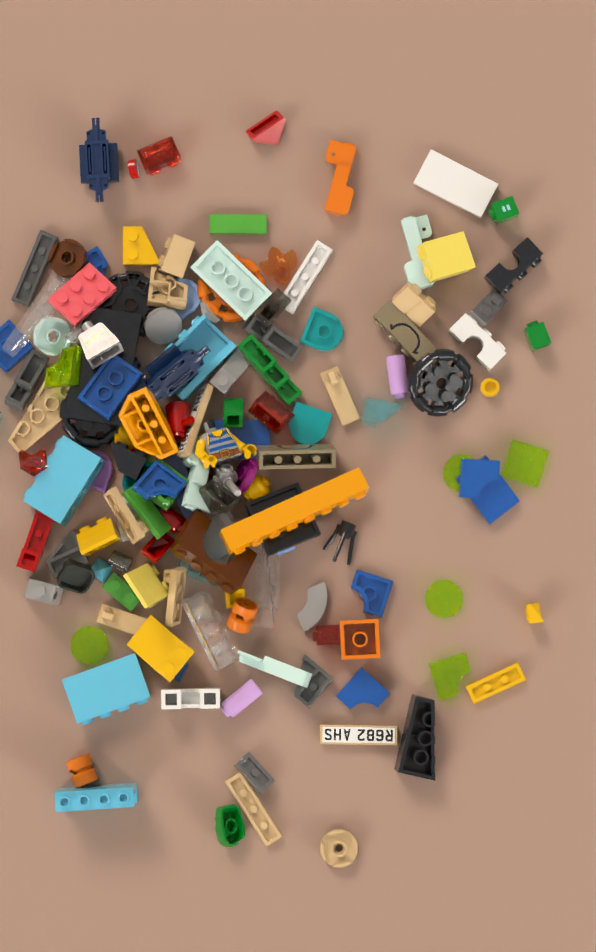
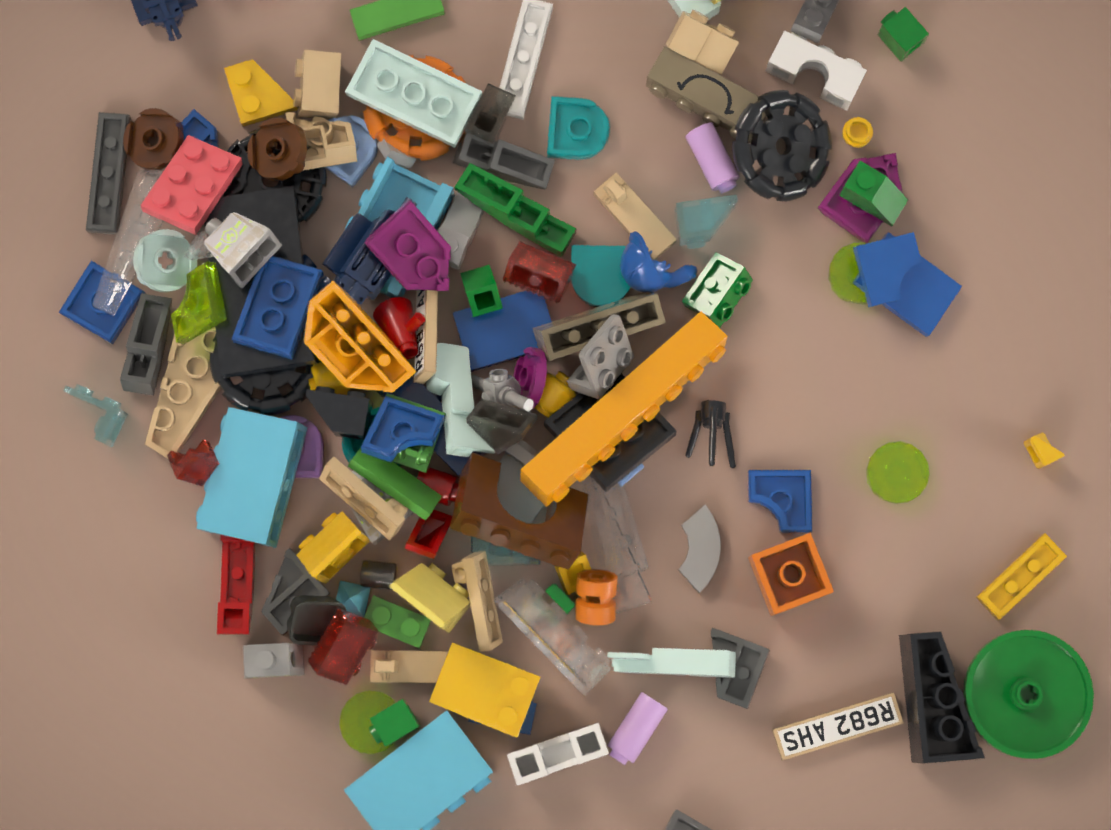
camera: 20 degrees left, 5 degrees down
(86, 597) = (343, 647): none -> clear red brick
(102, 650) = (393, 723): none -> green brick
(134, 281) = (290, 159): none -> reddish brown plate
(163, 325) = (331, 194): light grey tile -> none
(199, 378) = (412, 250): none -> magenta tile
(220, 446) = (478, 346): torso -> none
(221, 609) = (560, 598): none -> green tile
(279, 262) = (477, 49): clear orange plate -> none
(290, 479) = (602, 359): none -> light grey bracket
(327, 634) = (737, 585): clear red brick -> none
(334, 434) = (647, 274): none -> blue piece
(362, 689) = (821, 653): blue tile -> none
(374, 456) = (718, 289): none -> bracket
(447, 674) = (944, 586): clear neon green tile -> none
(474, 752) = (1028, 694): none -> green dish
(481, 427) = (846, 214): none -> magenta tile
(485, 429) = (874, 193): none -> green slope
(524, 463) = (949, 228): clear neon green tile -> none

